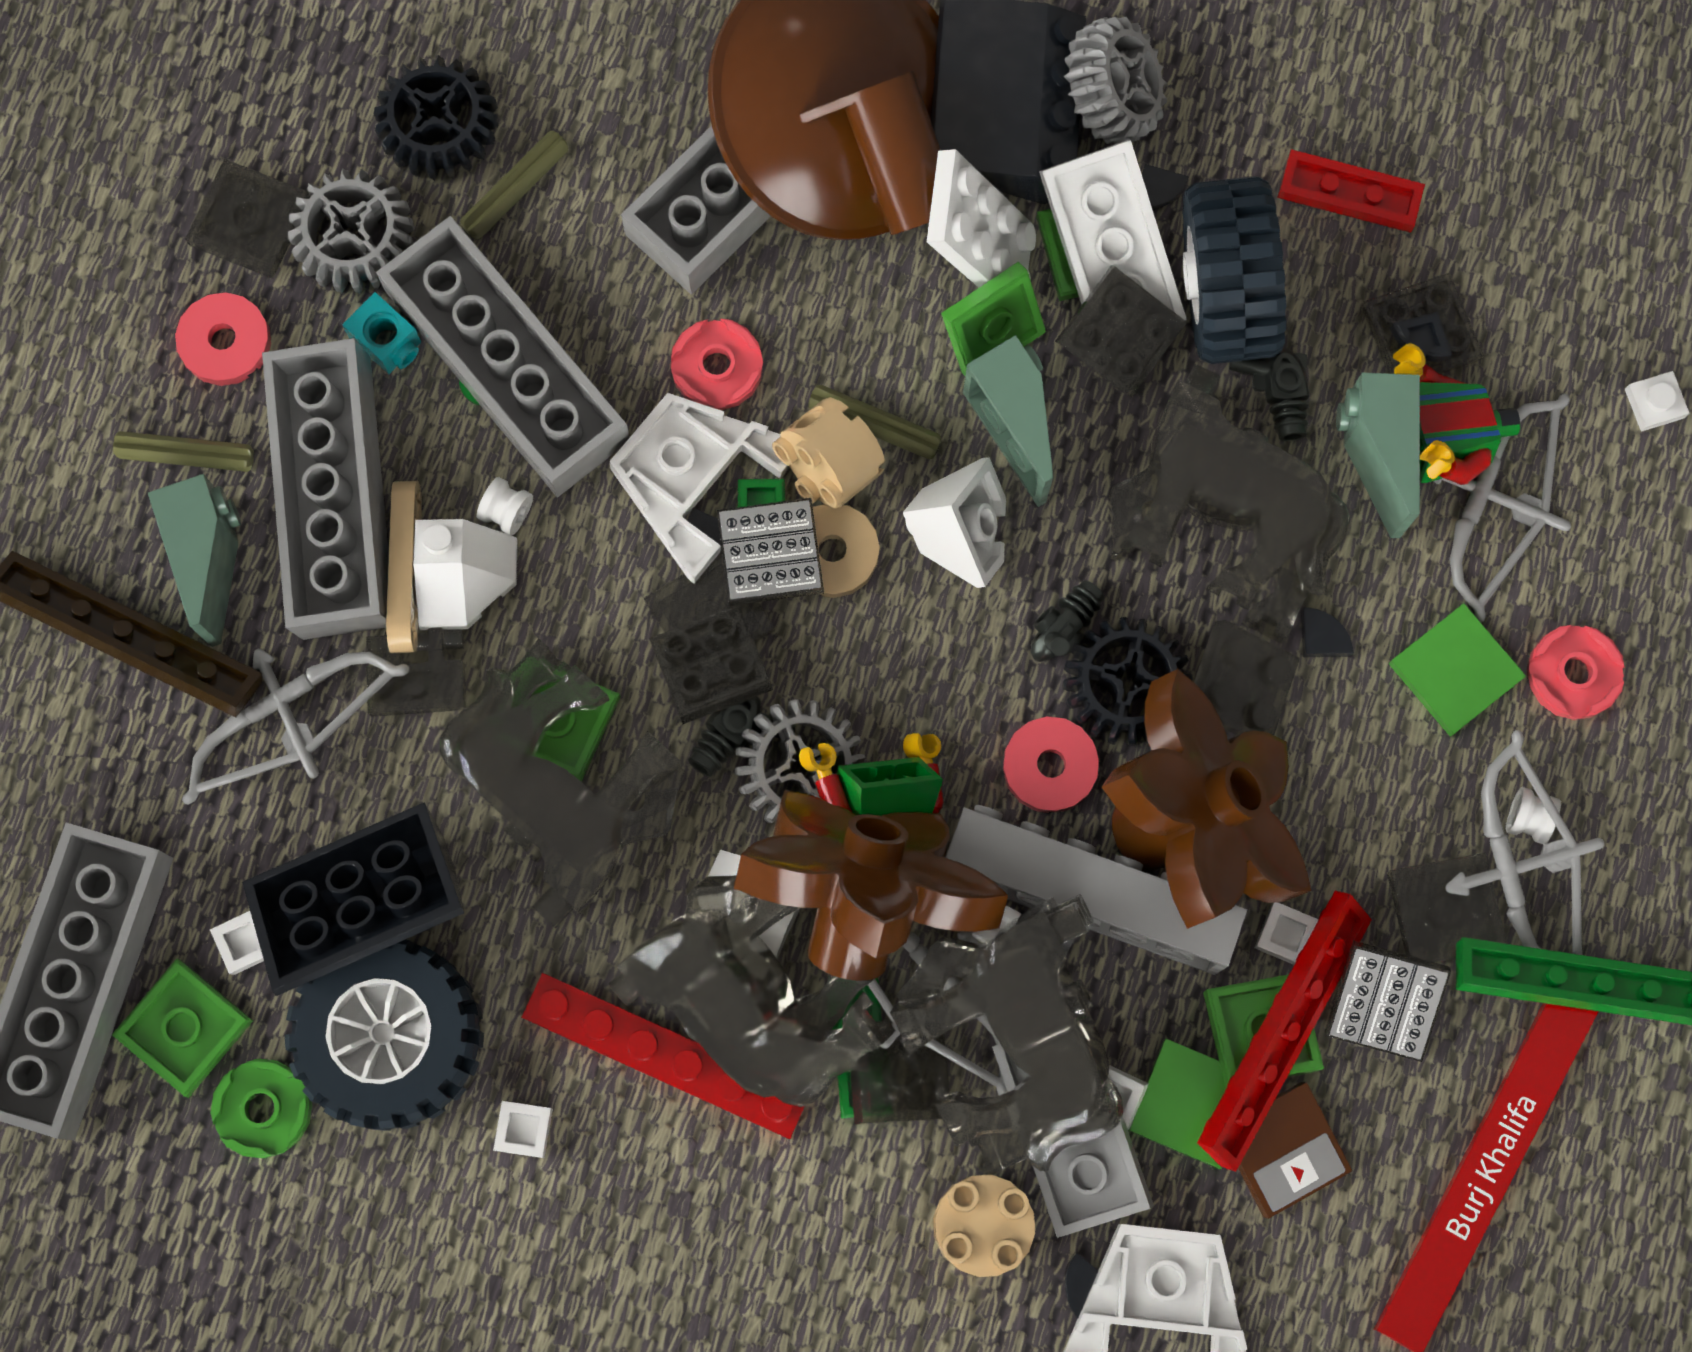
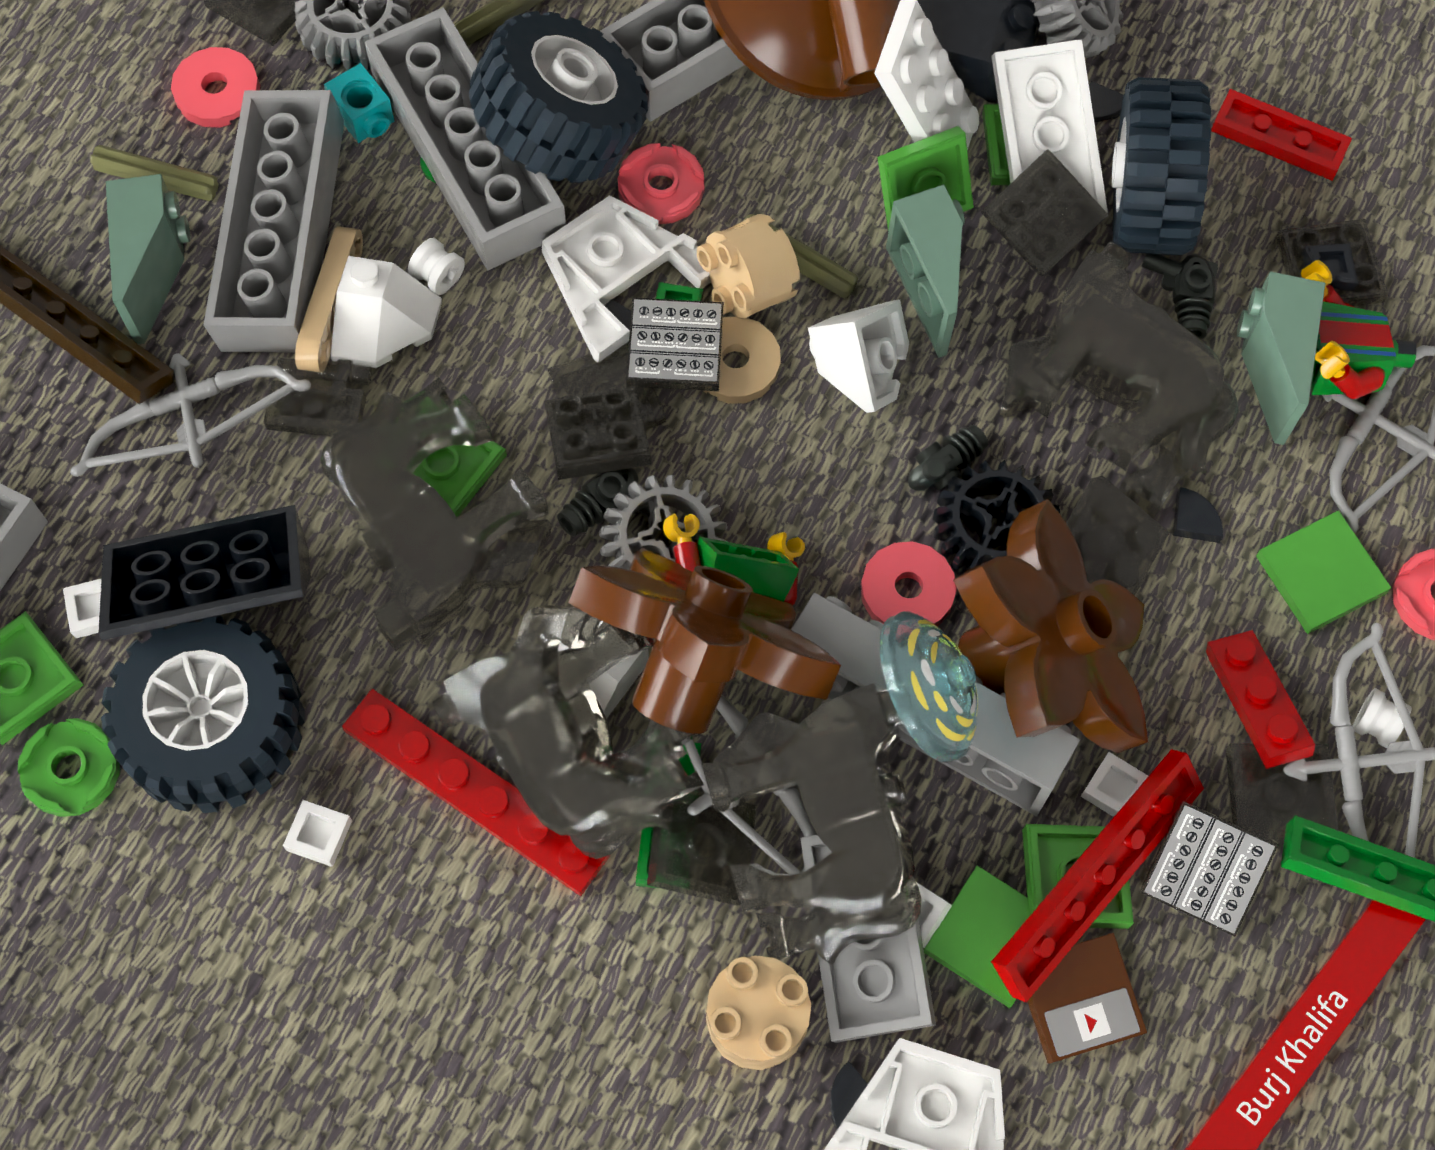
camera: 10 degrees right, 10 degrees down
(596, 303) = (558, 97): none -> black wheel
(1095, 897) = (929, 685): none -> clear light blue dish
(1413, 819) = (1260, 699): none -> red plate

